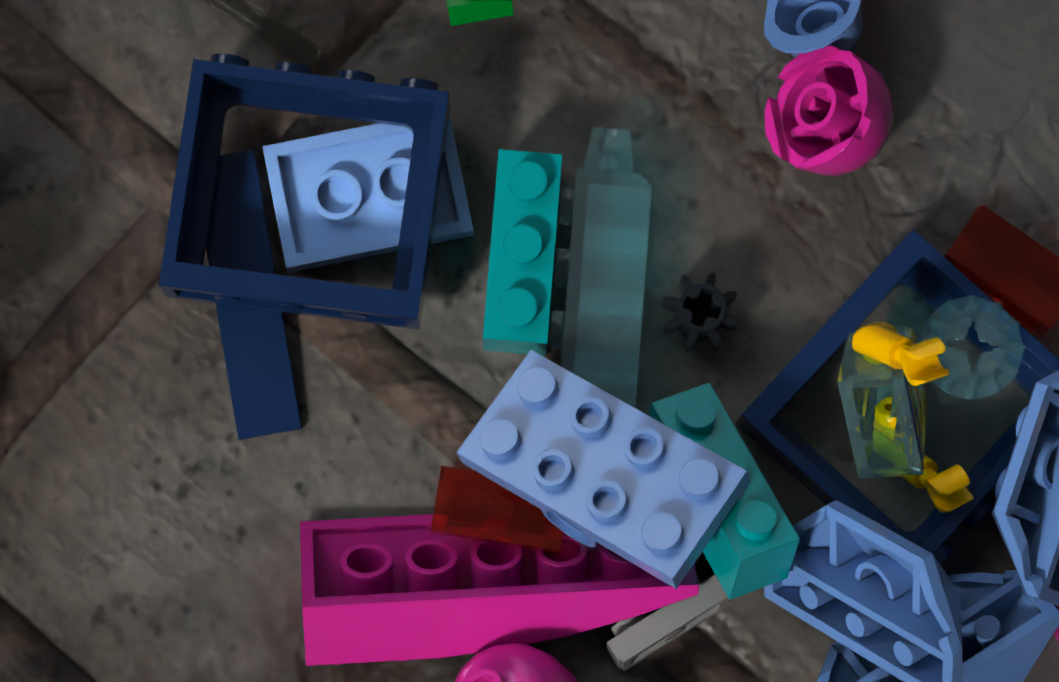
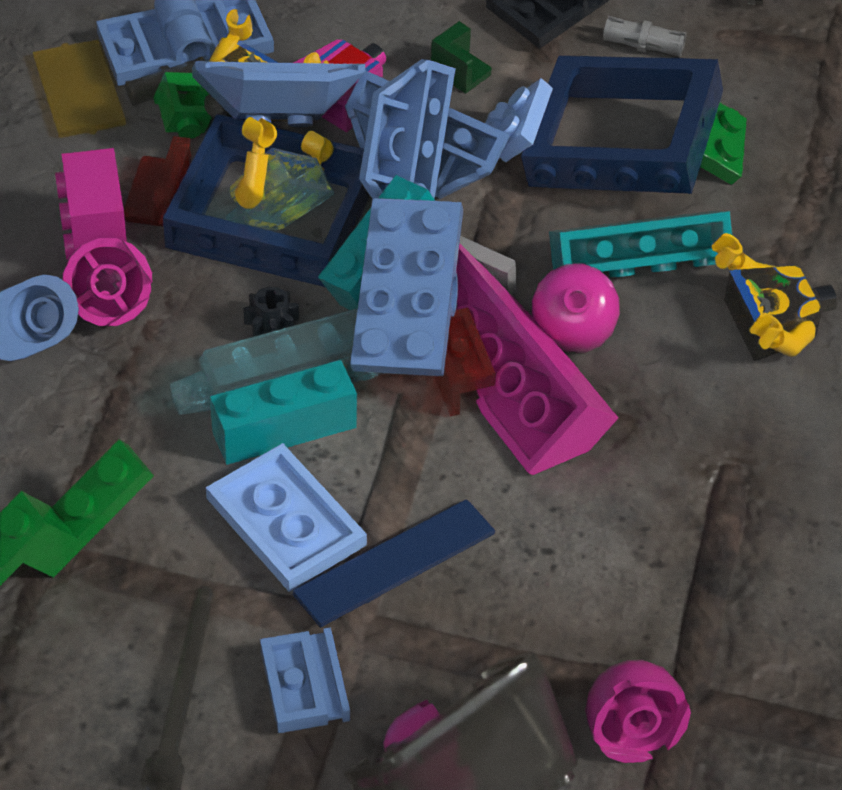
camera: 115 degrees left, 30 degrees down
(123, 109) = (304, 680): none -> medium blue plate
(293, 88) = (296, 460): dark blue piece -> none
(964, 142) = (92, 196): none -> dark pink piece
(993, 368) = (214, 175): clear light blue gear -> none

